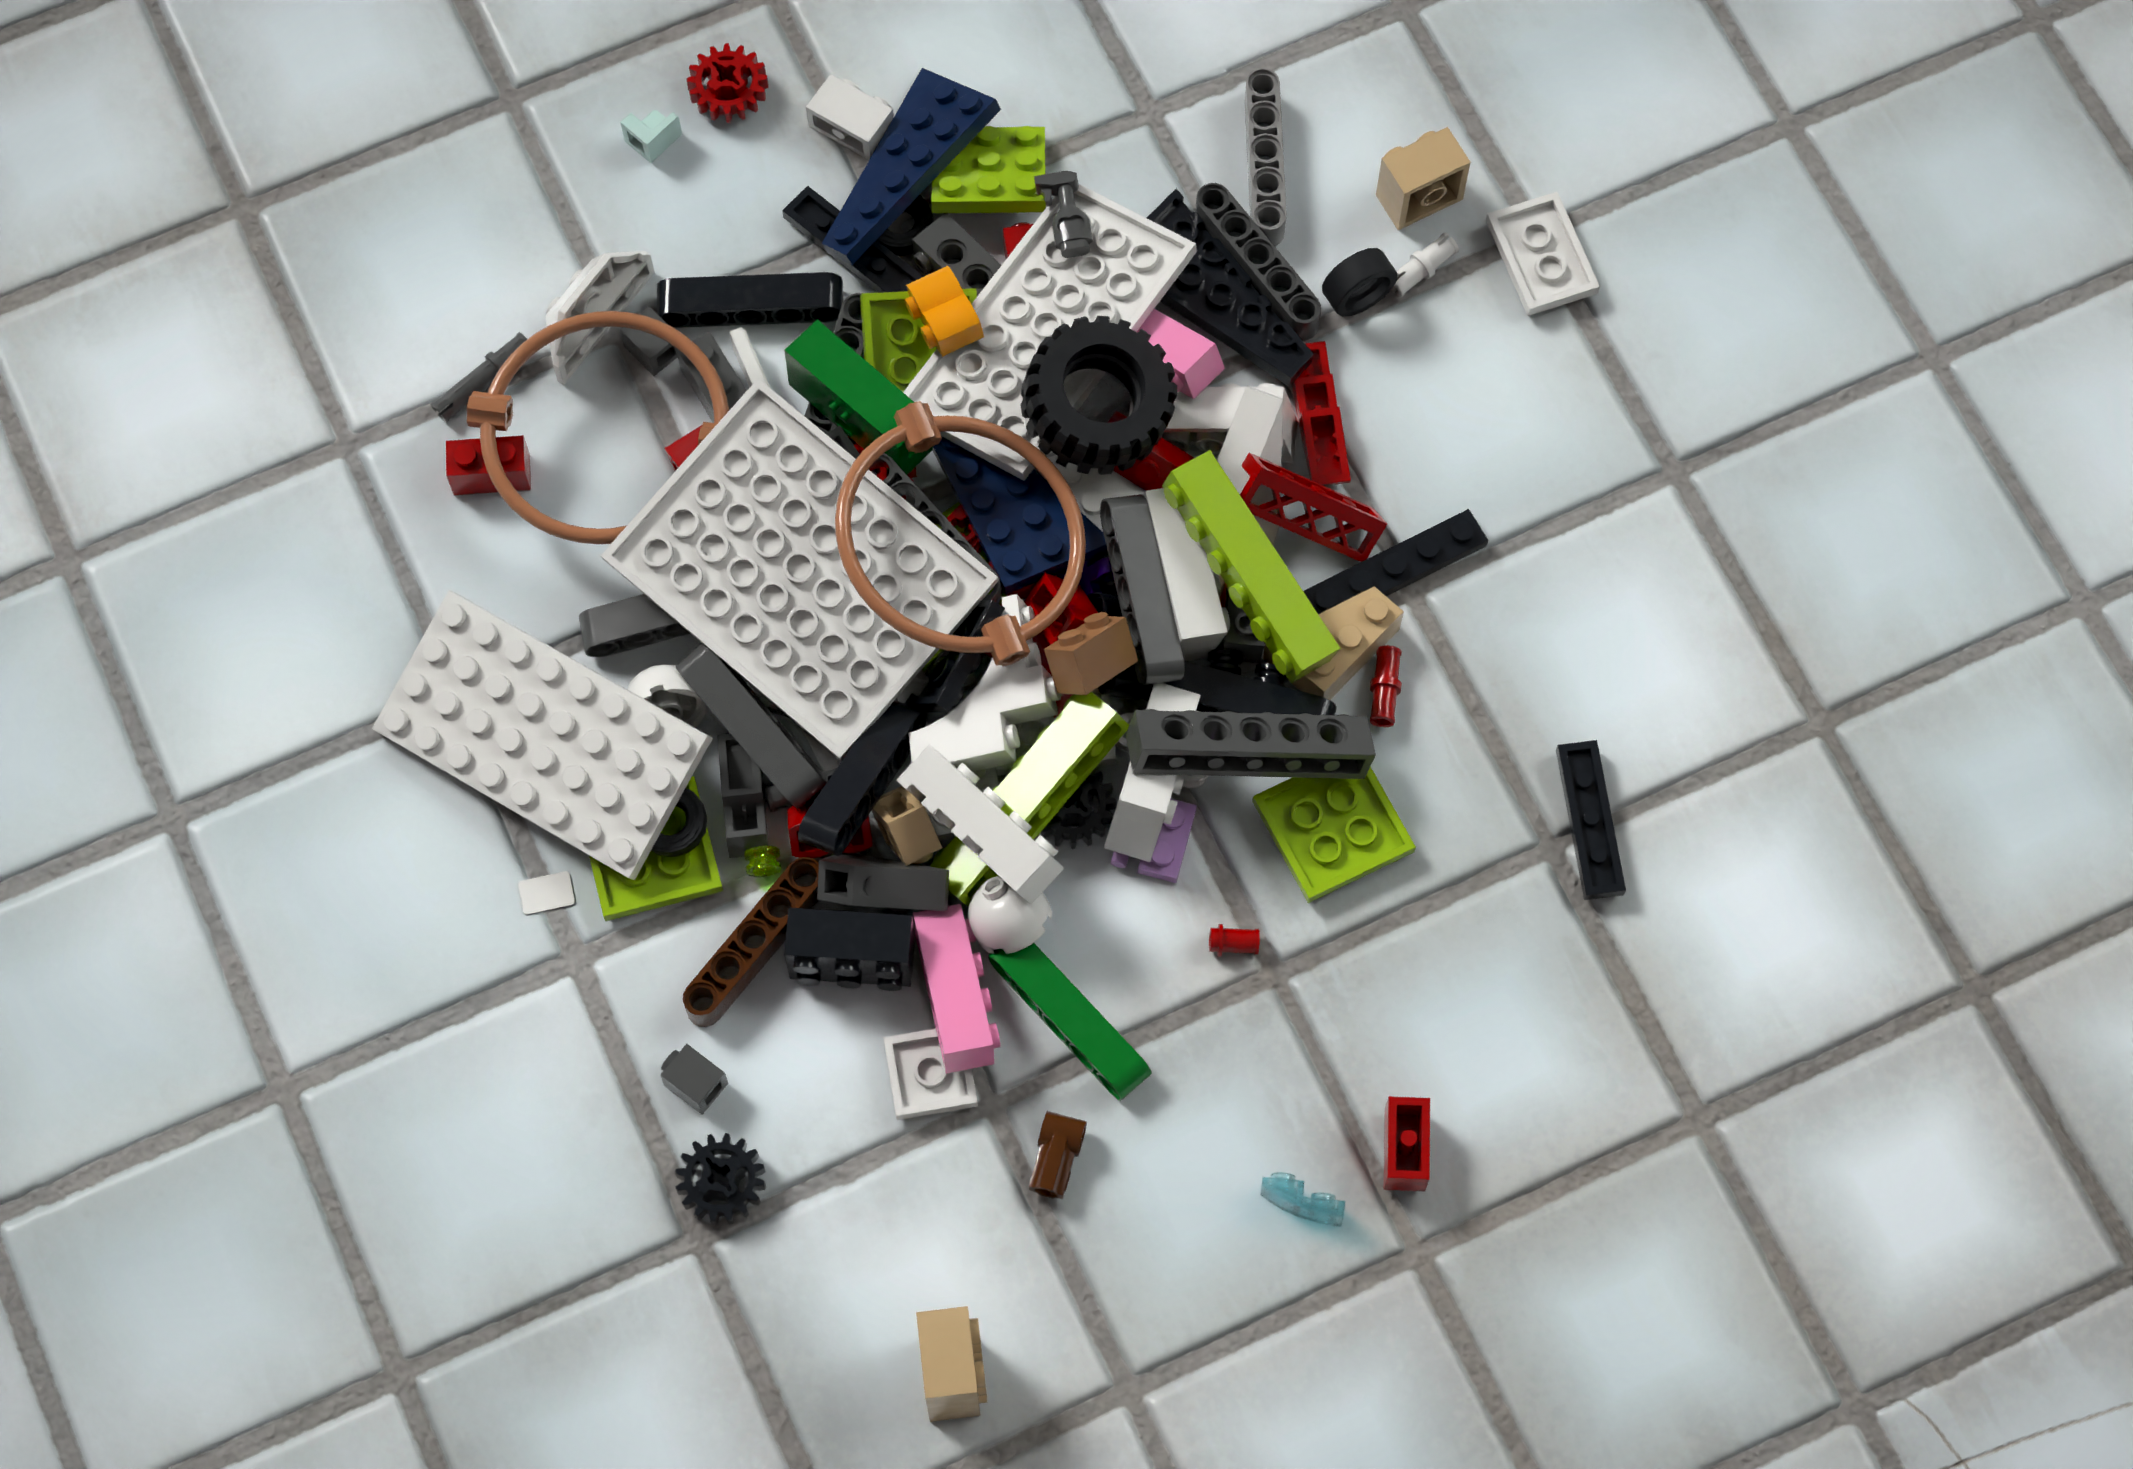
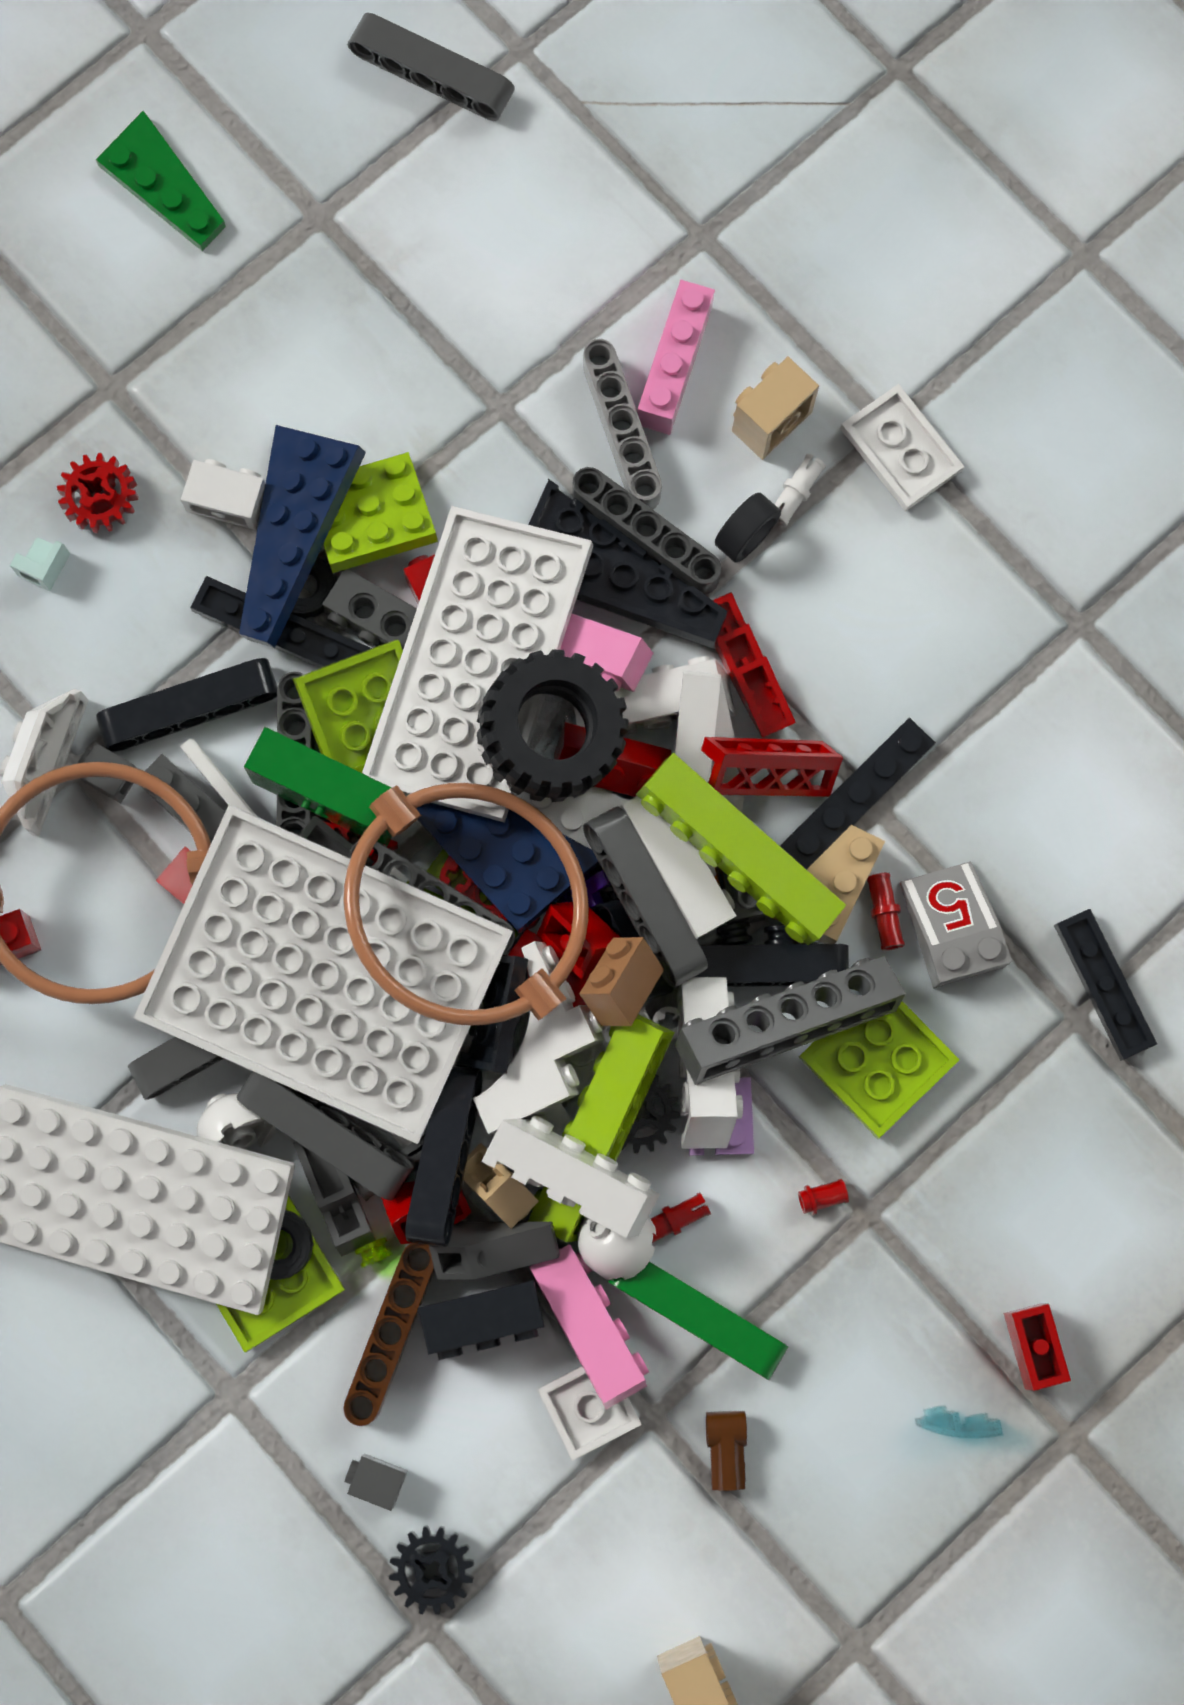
camera: 20 degrees left, 10 degrees up
(546, 892) = (182, 1339): white sticker -> none
(944, 311) = (378, 677): light orange brick -> none
(1070, 224) = (468, 552): dark grey piece -> none
(1079, 918) = (679, 1216): none -> red pin
(1339, 108) = (675, 356): none -> bright pink brick
(1452, 721) = (955, 925): none -> light grey slope

